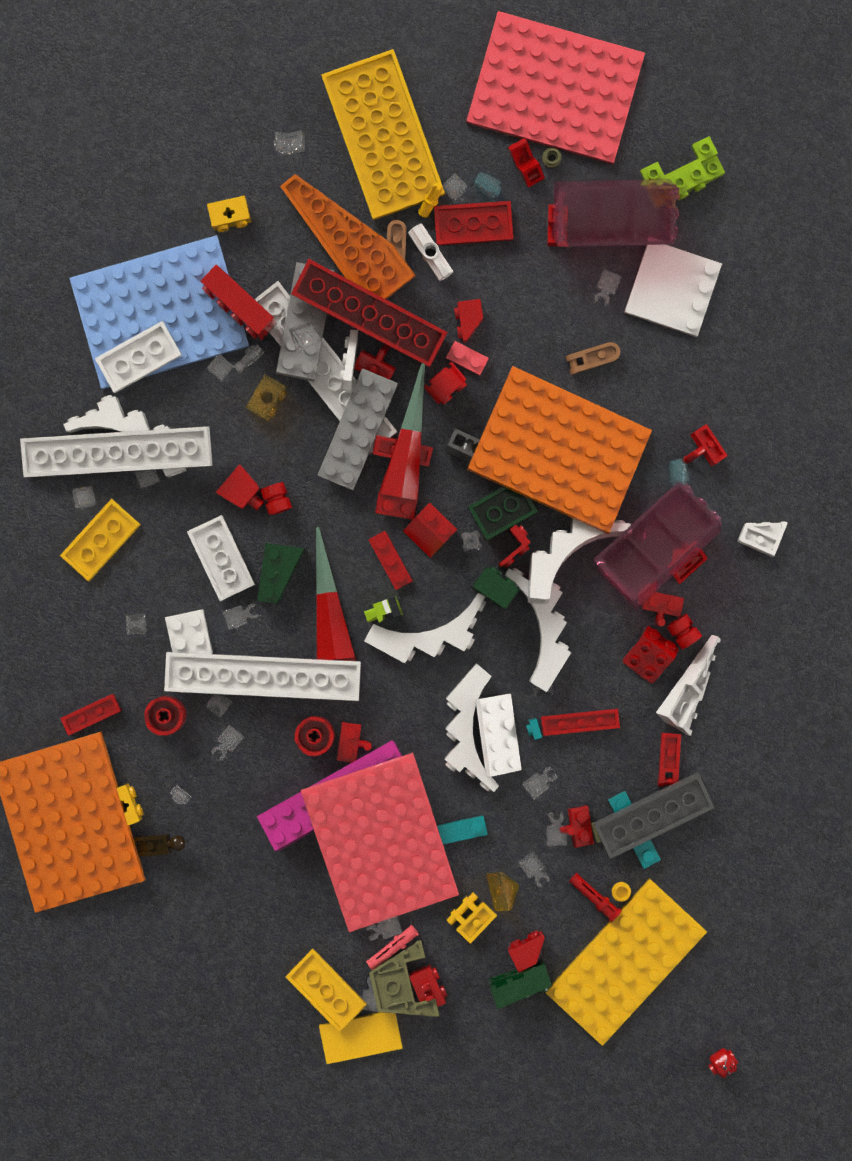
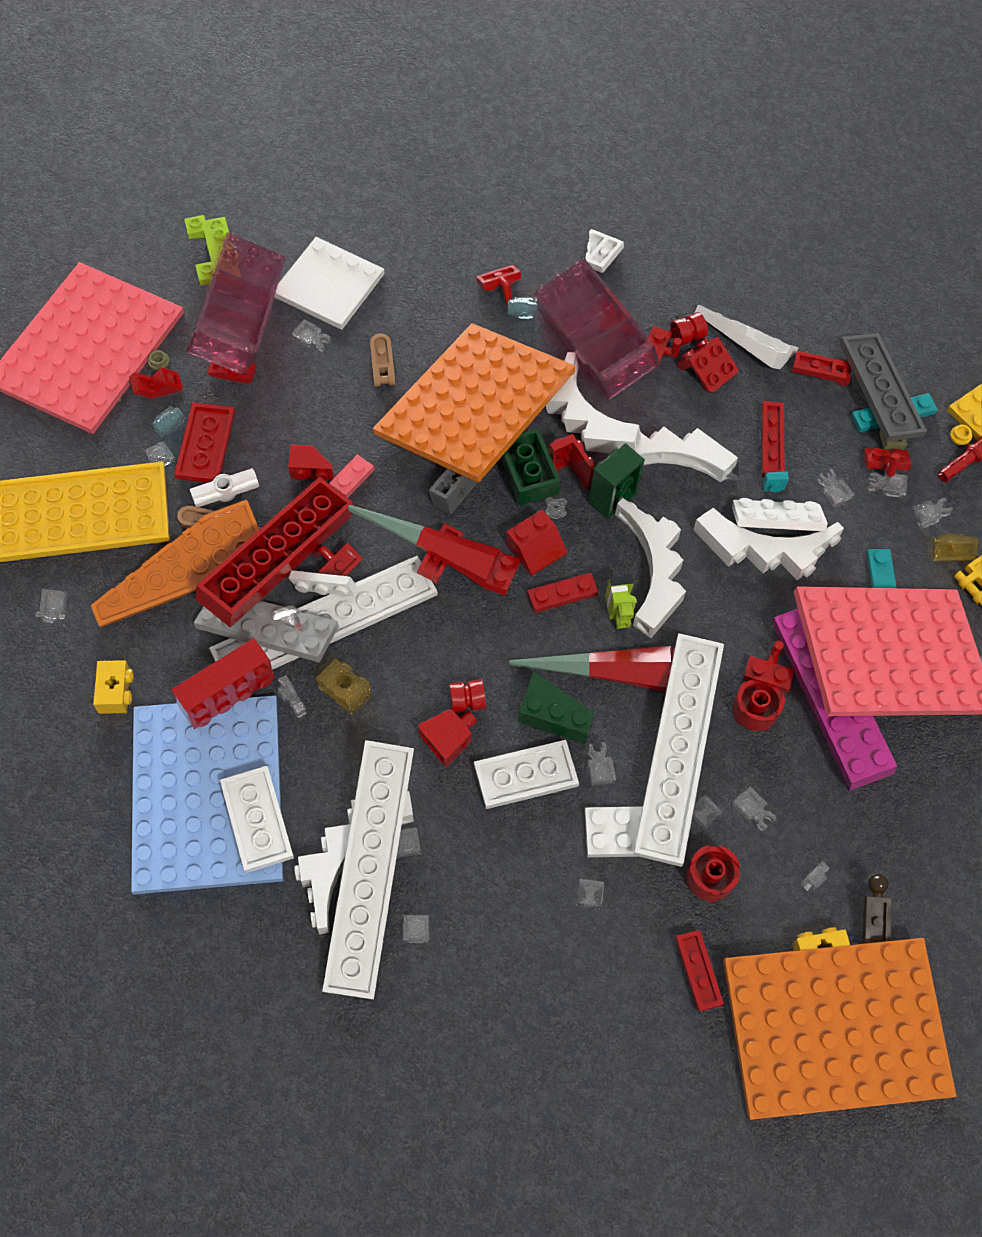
camera: 80 degrees left, 25 degrees down
(100, 540) = (475, 919): yellow tile -> none
(220, 367) = (294, 732): clear plate -> none
(357, 429) = (407, 593): light grey plate -> none
(430, 200) = (167, 473): yellow axle -> none
(445, 383) = (376, 493): red brick -> none

